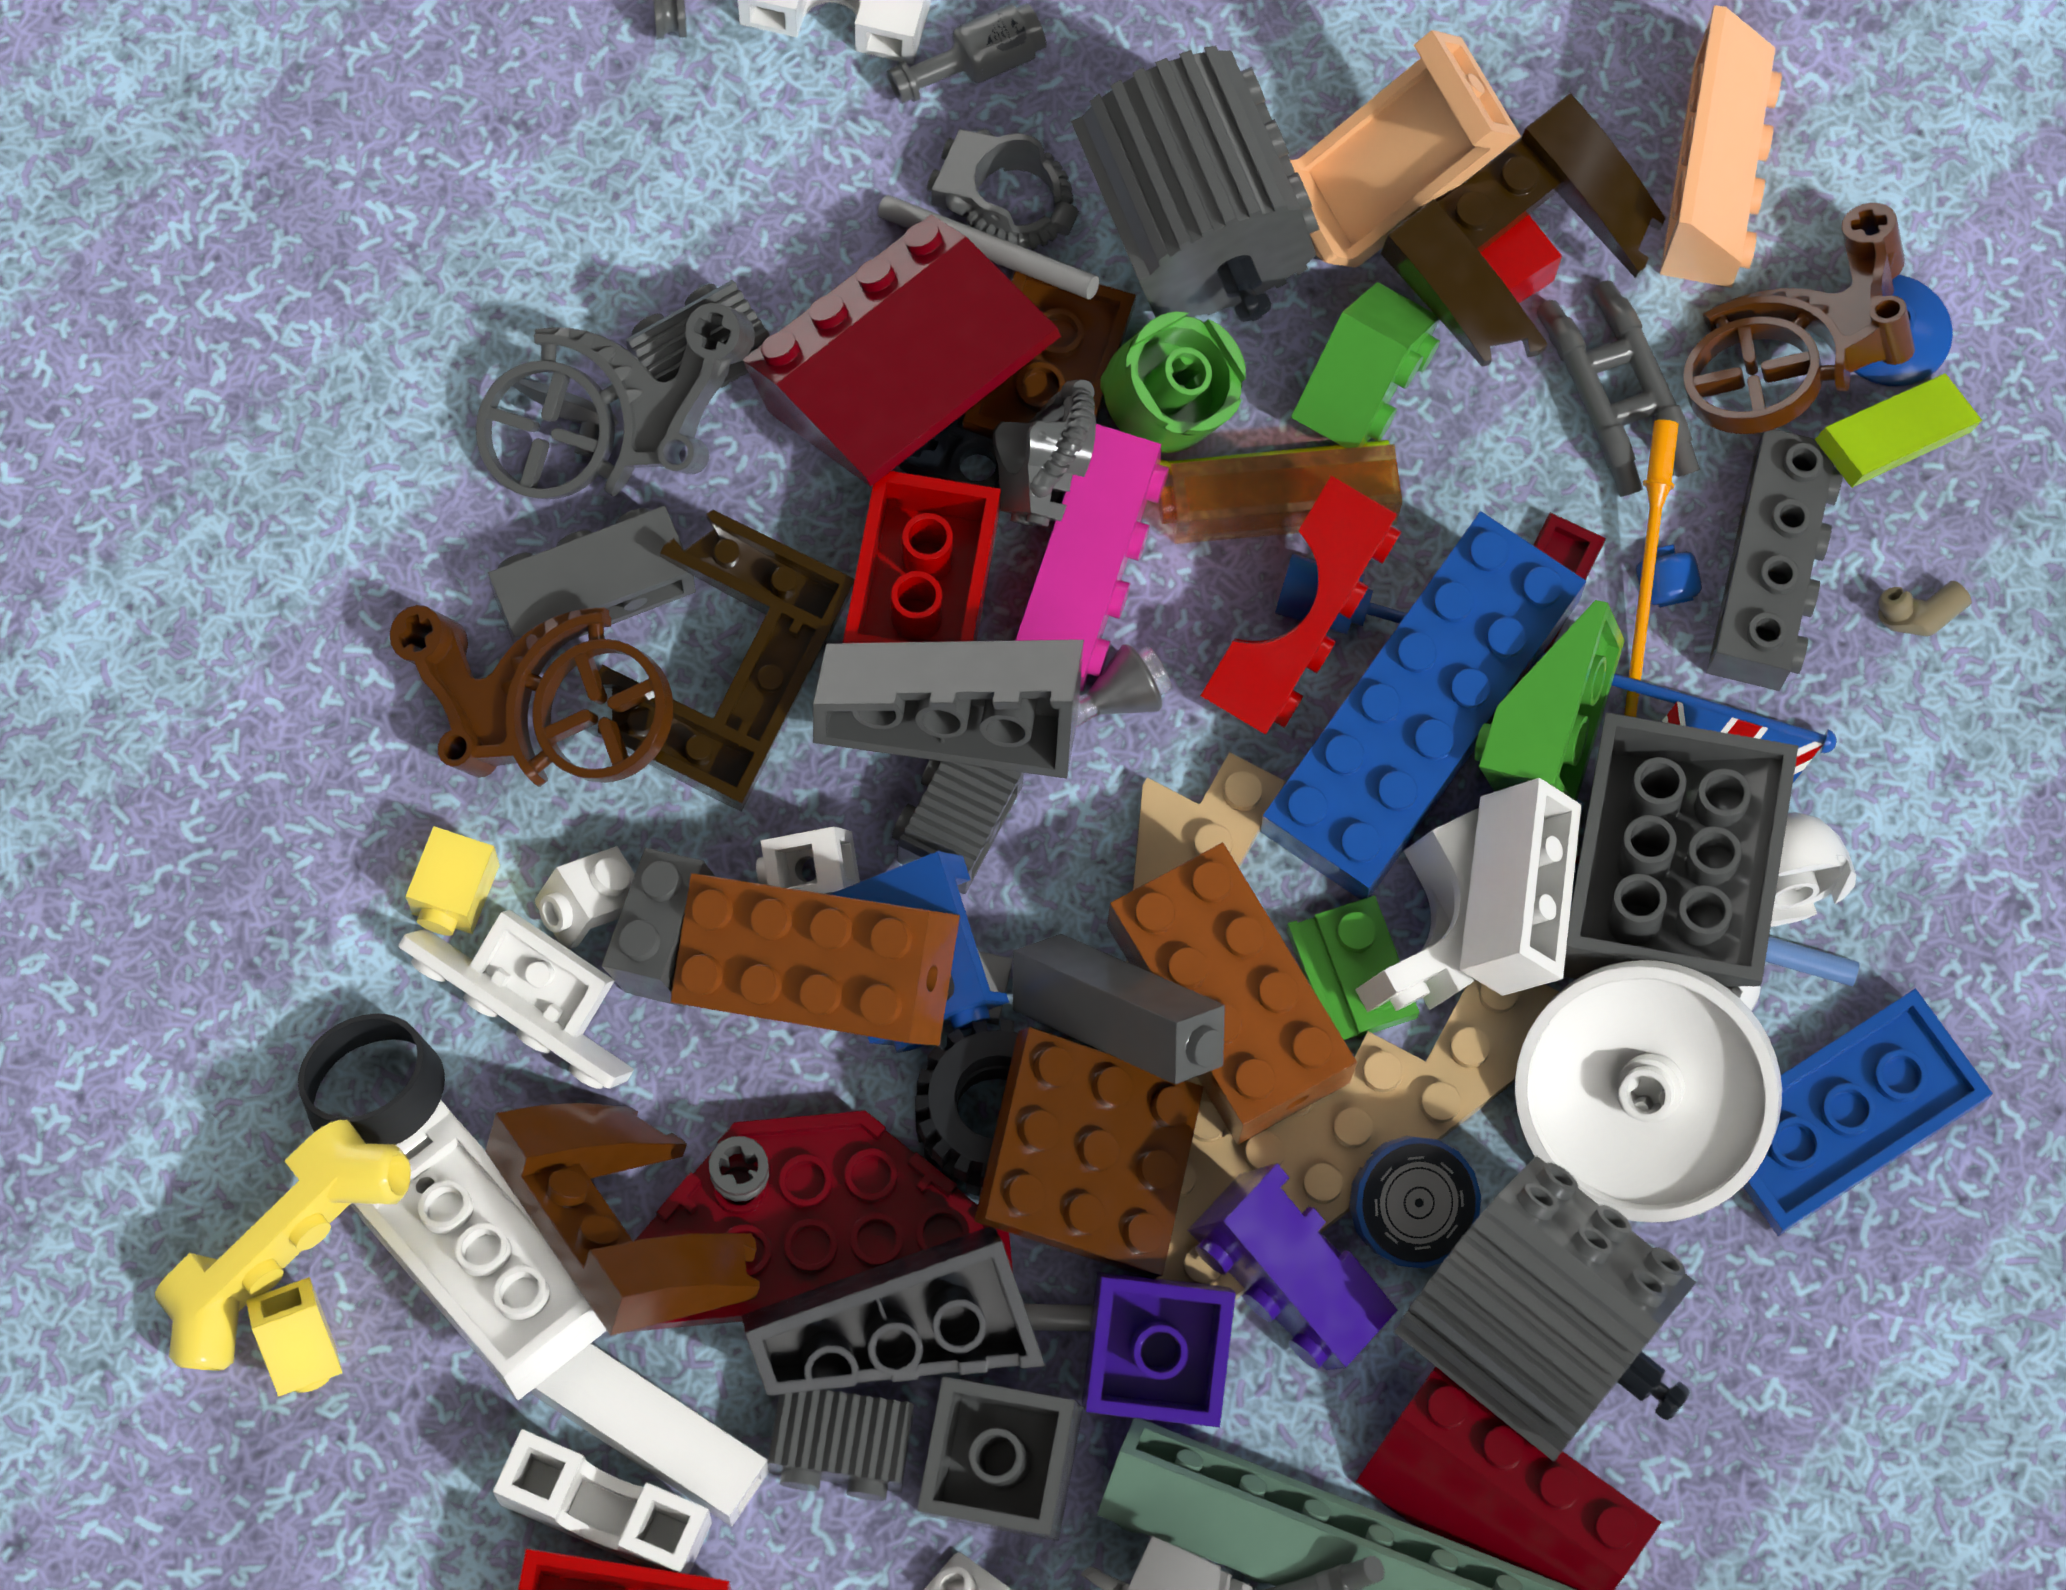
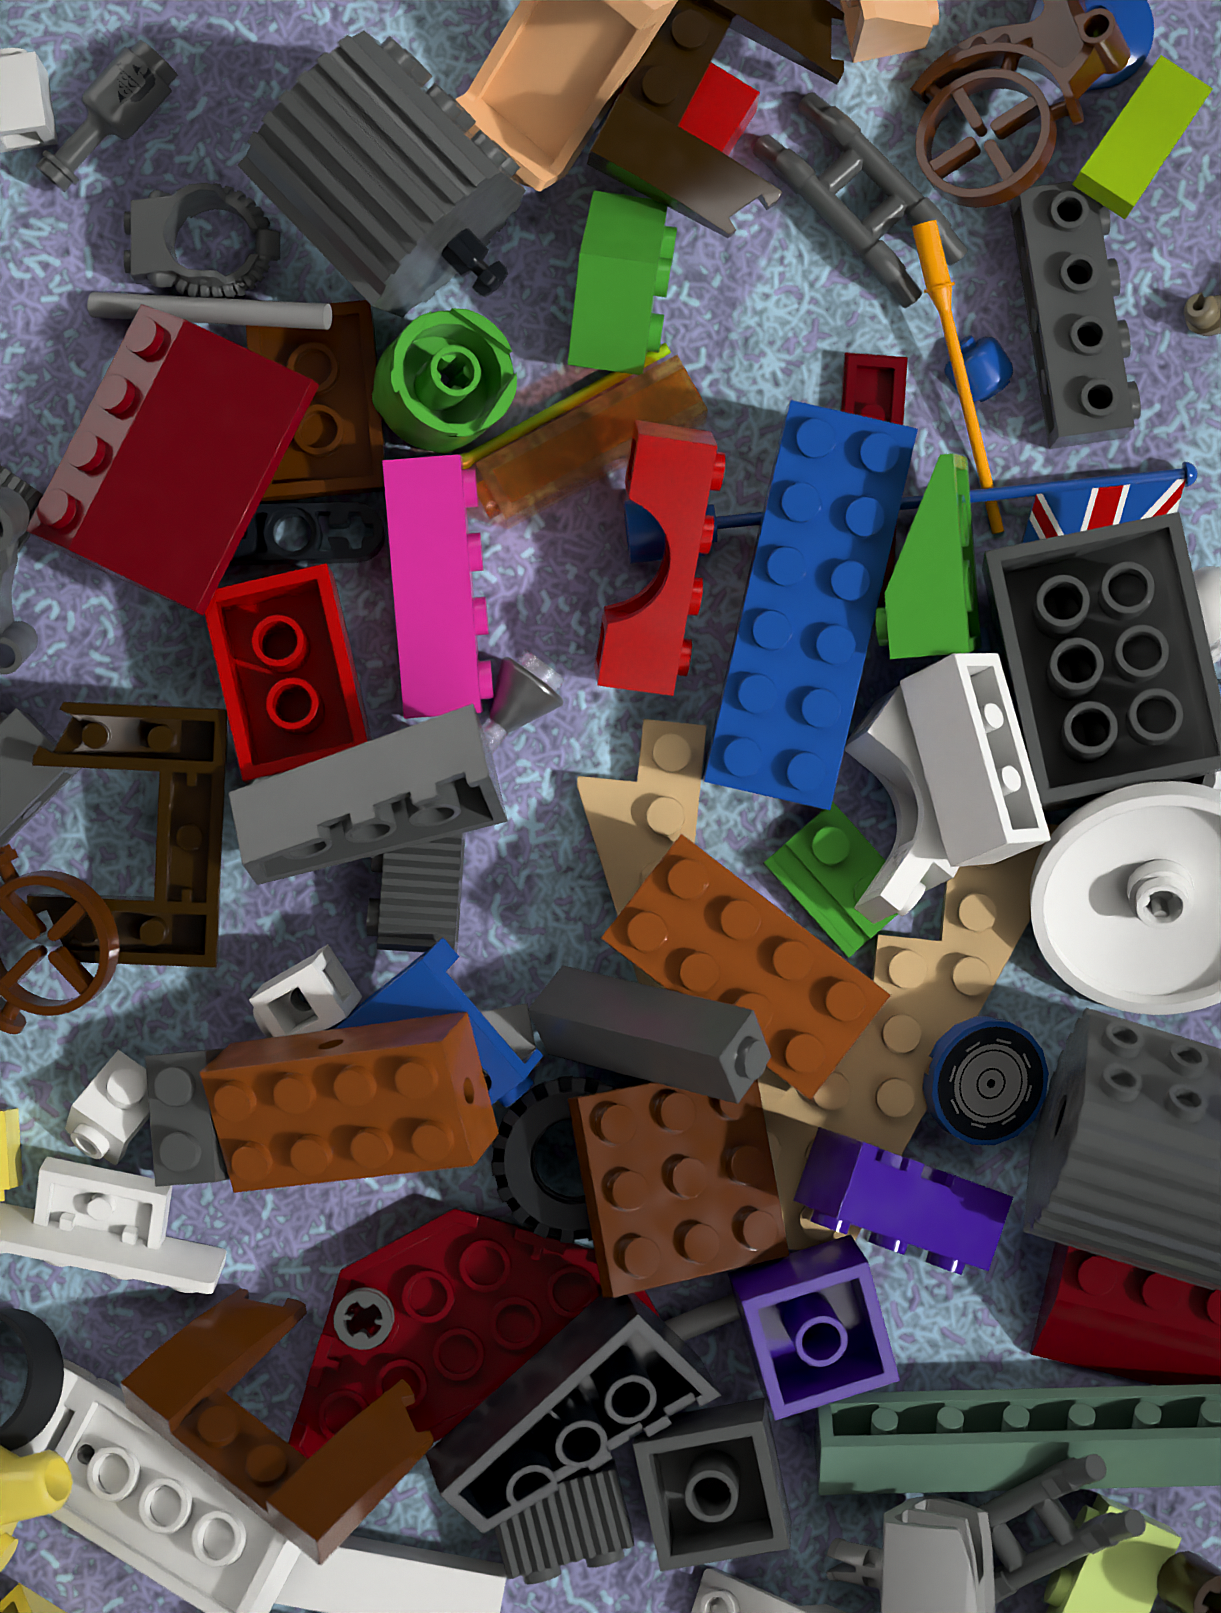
camera: 20 degrees left, 15 degrees up
(1045, 454) = (354, 507): dark grey piece -> none

